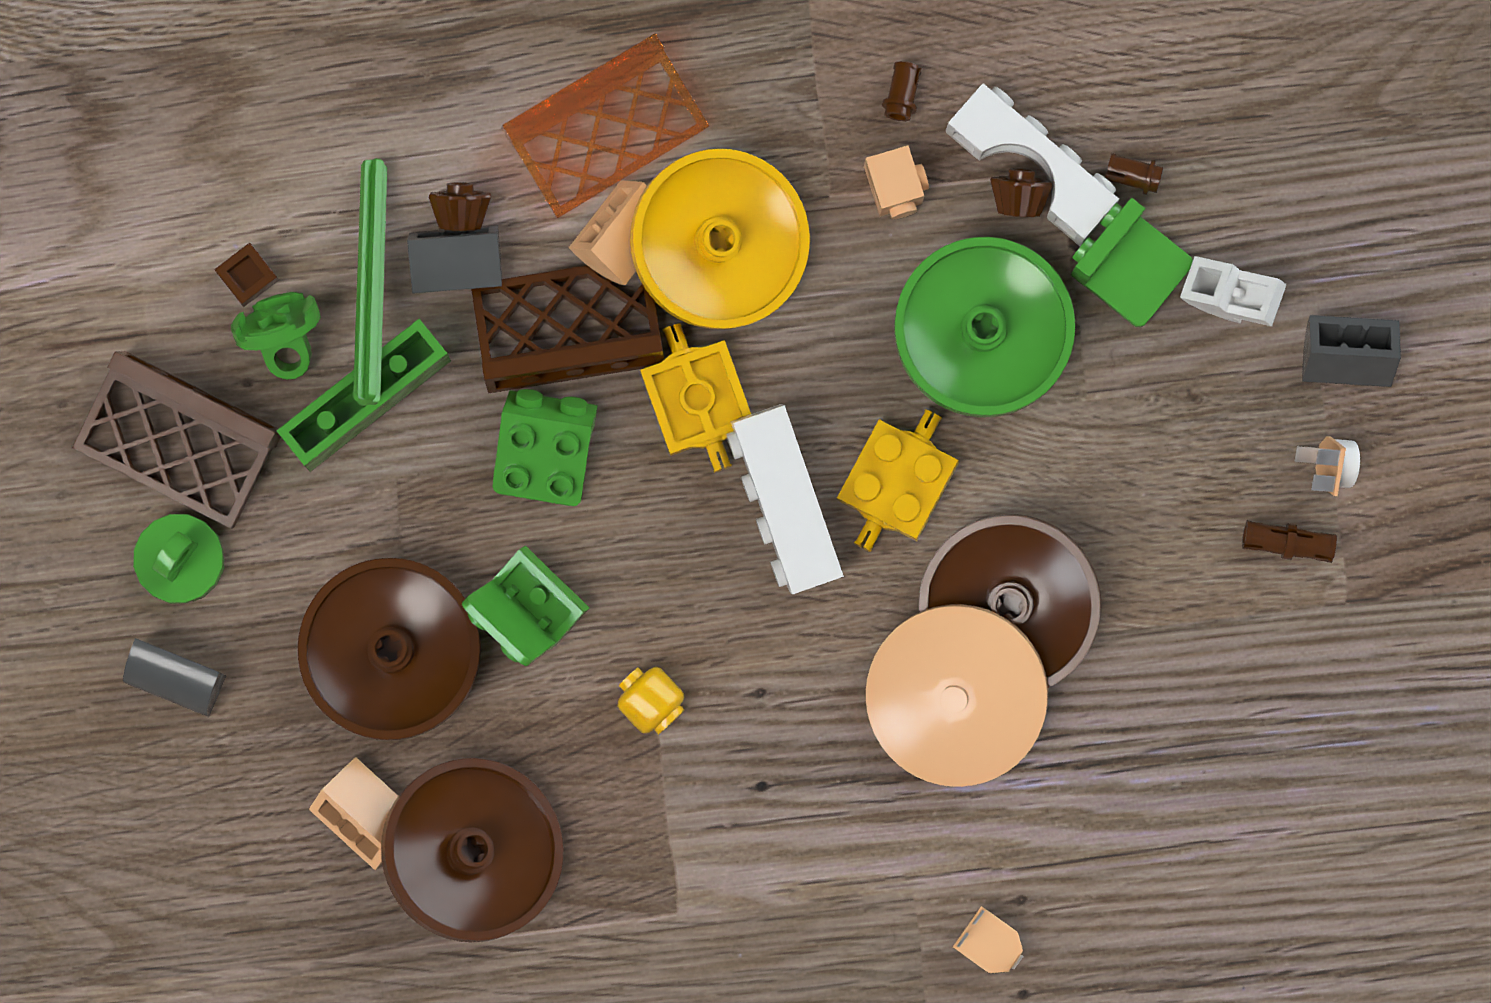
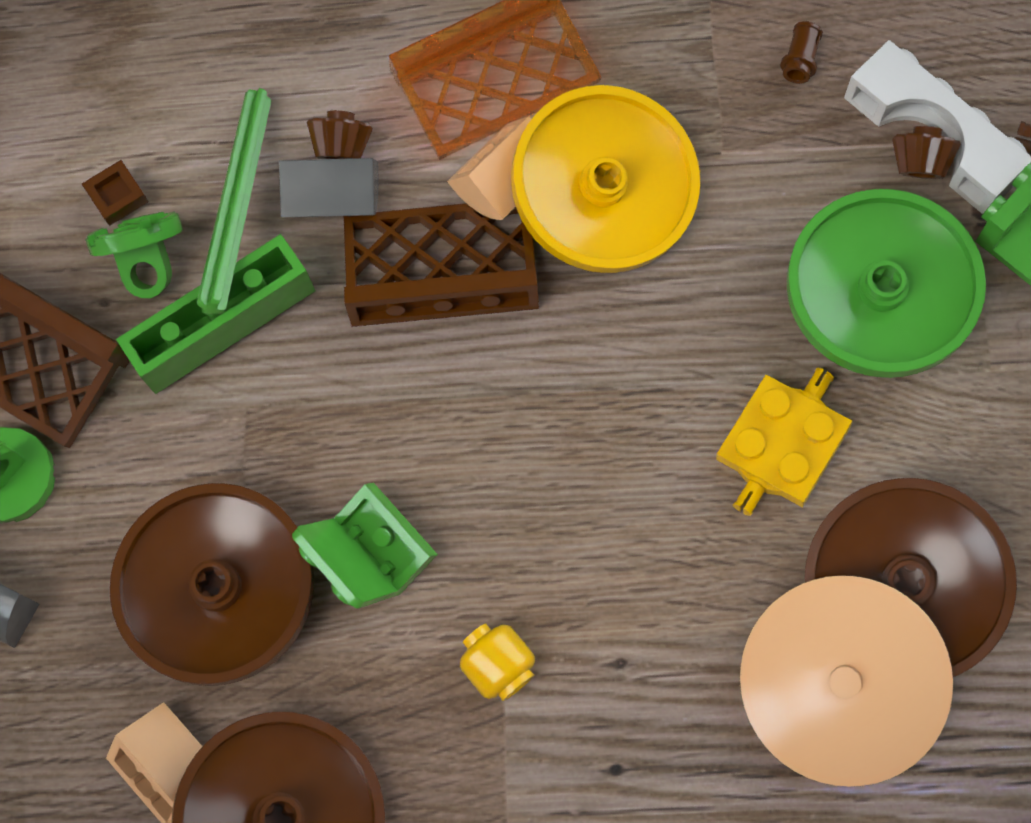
camera: 15 degrees right, 10 degrees down
(543, 447) = (402, 382): bright green bracket -> none
(696, 396) = (571, 341): yellow plate -> none
(786, 499) = (661, 448): white brick -> none
(896, 182) = (792, 136): light nougat brick -> none

